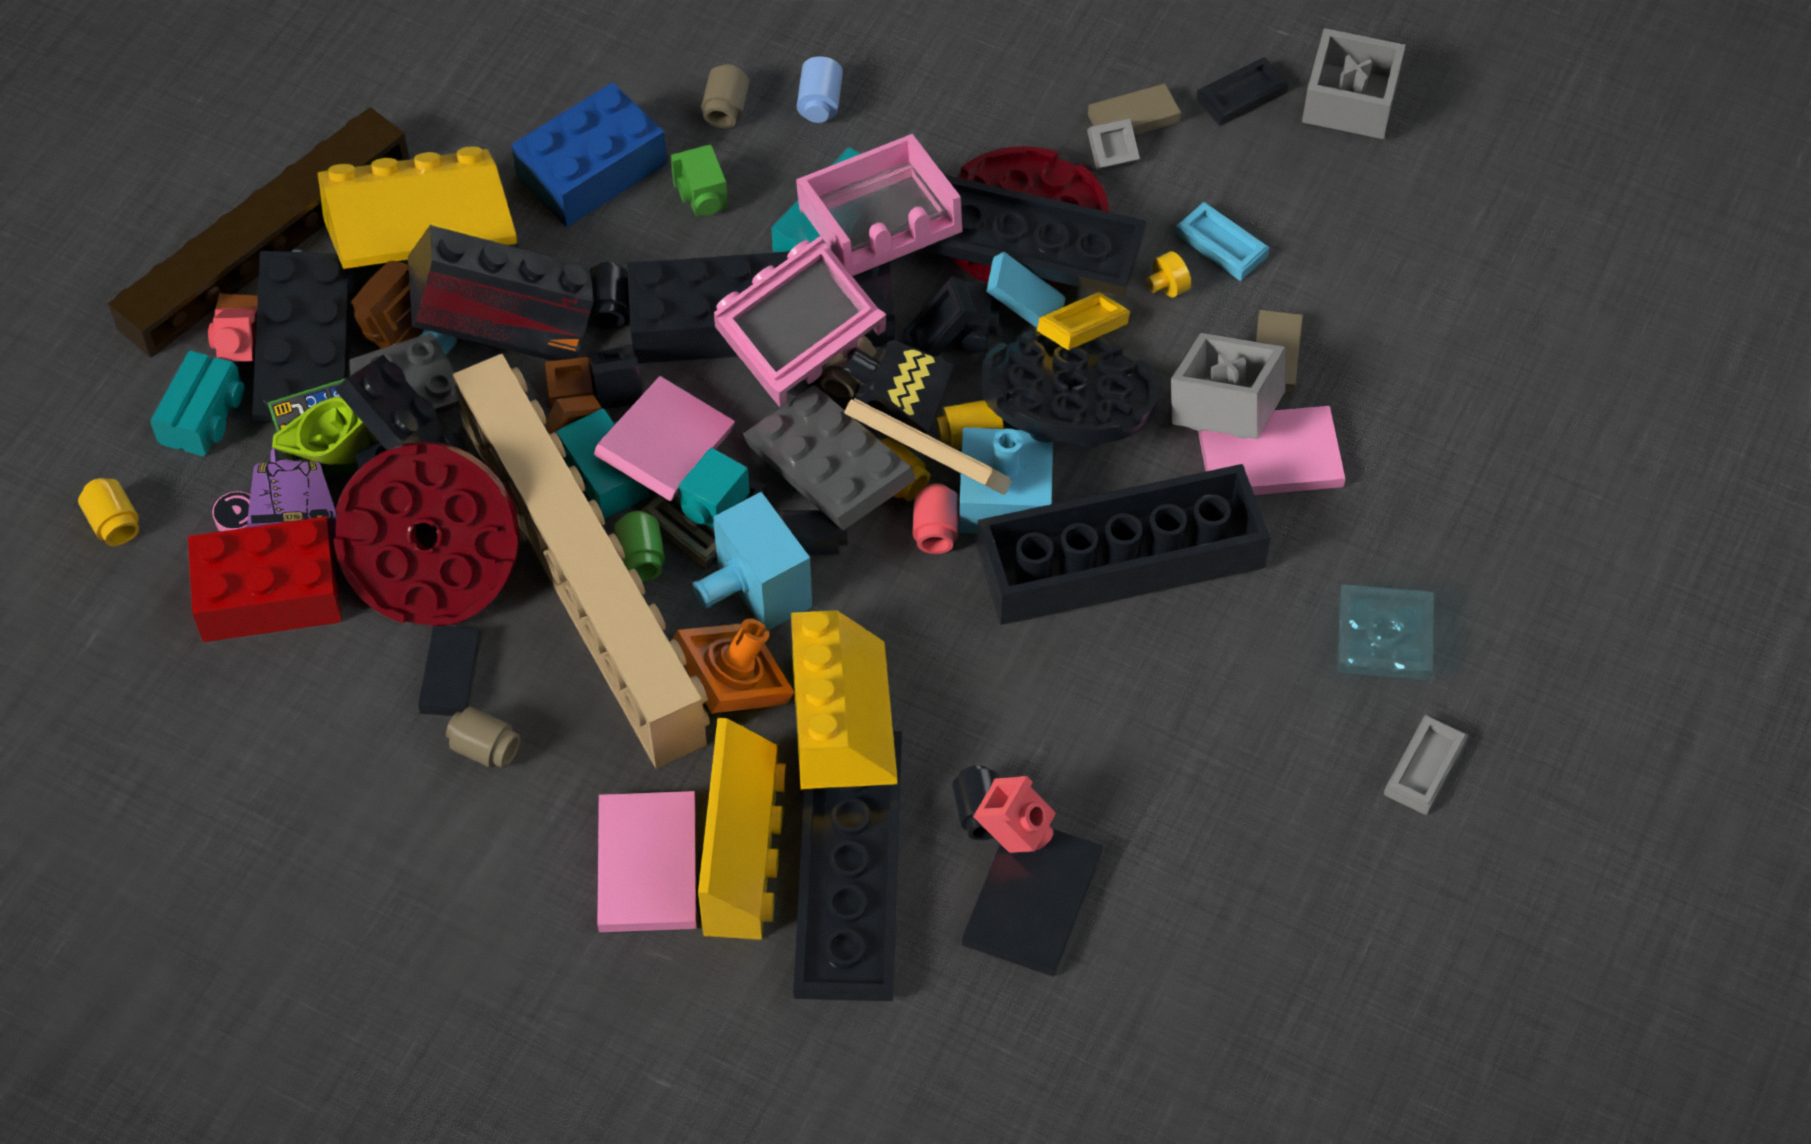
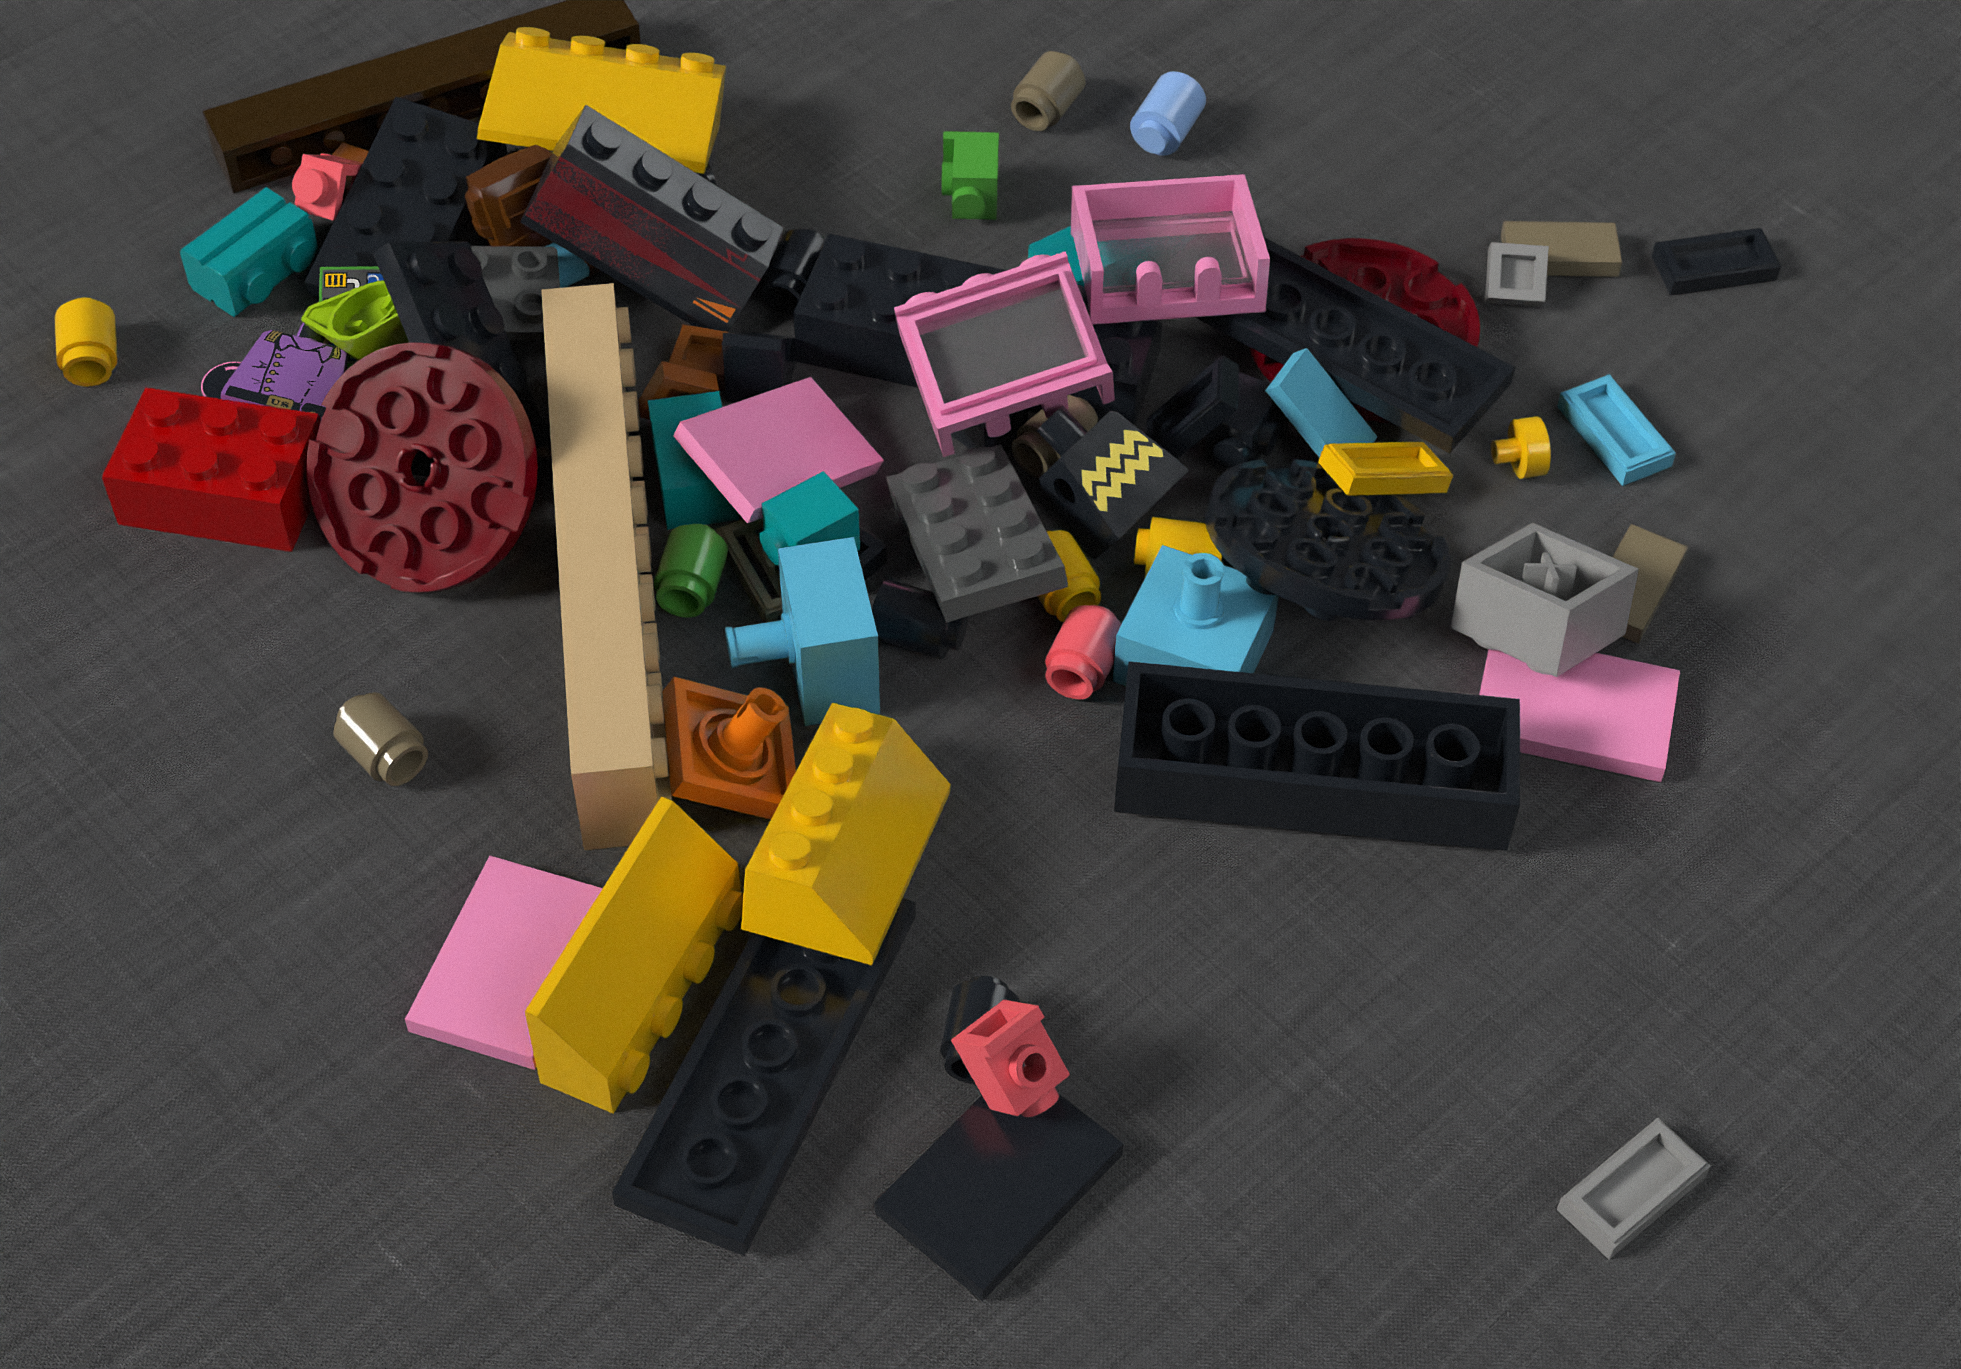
camera: 20 degrees right, 5 degrees down
(449, 670) = (387, 645): black tile -> none
(589, 154) = (851, 108): blue brick -> none
(928, 446) = (1103, 552): tan tile -> none
(1353, 83) = (1867, 285): light grey brick -> none
(1385, 632) = (1643, 988): clear light blue plate -> none

